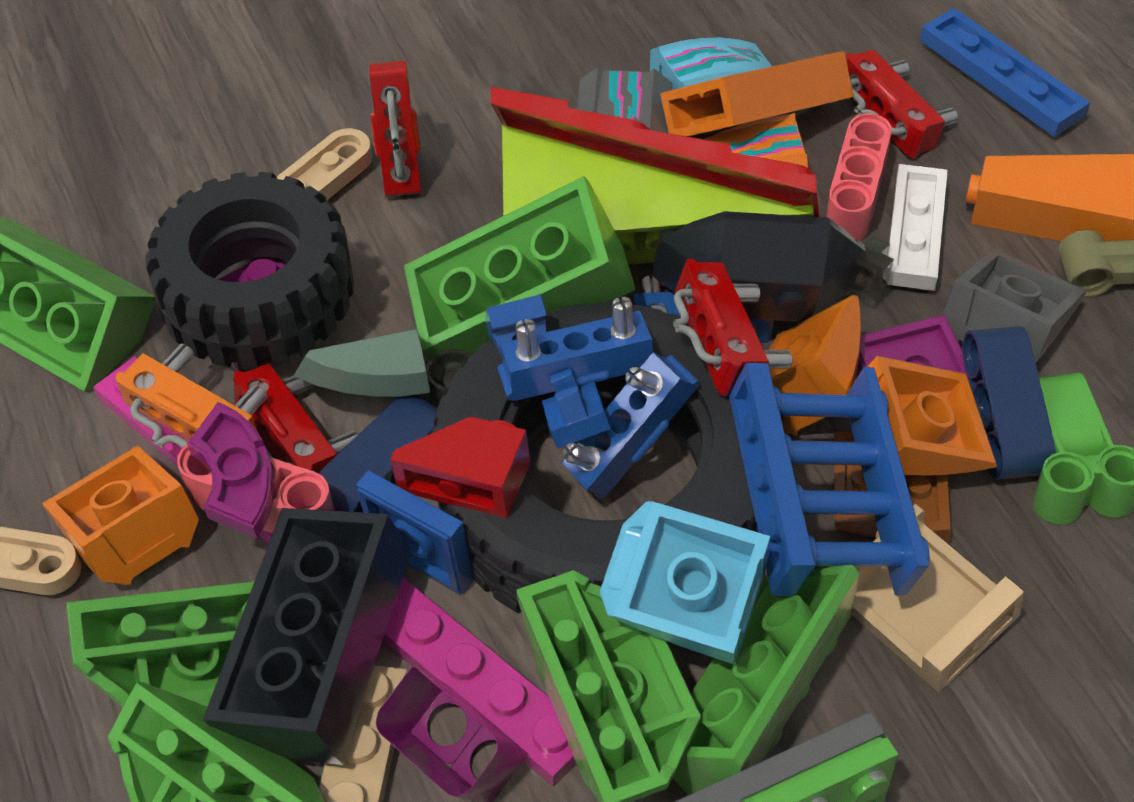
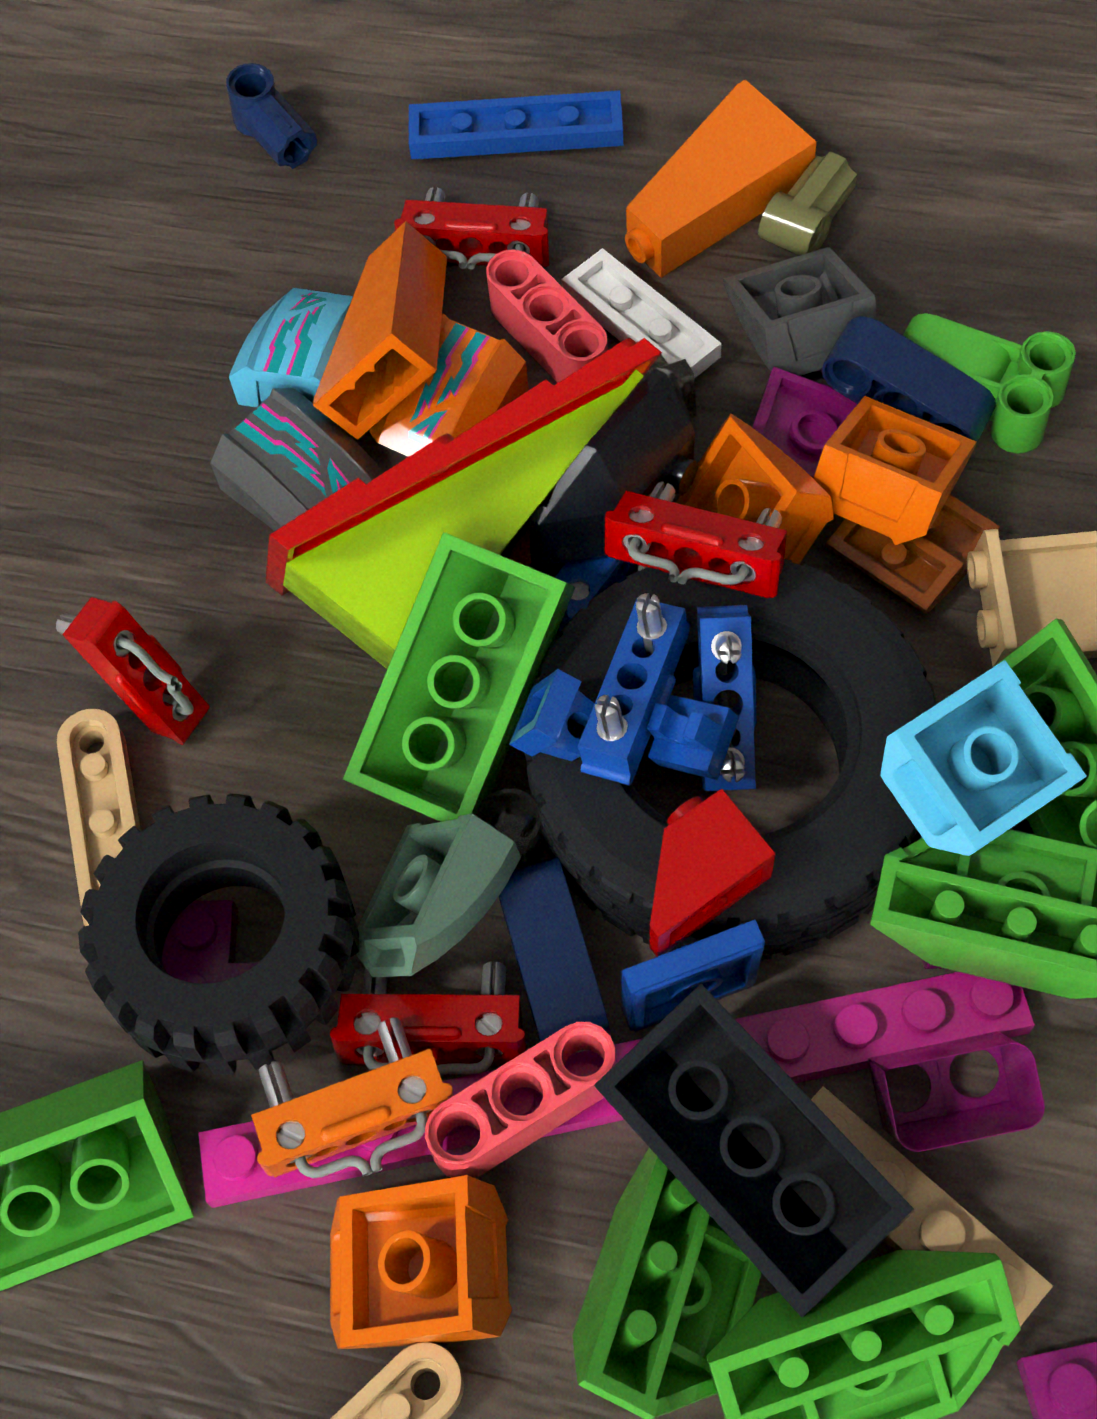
camera: 50 degrees left, 10 degrees up
(239, 470) = (509, 1099): magenta tile -> none
(781, 502) = (916, 619): blue fence -> none

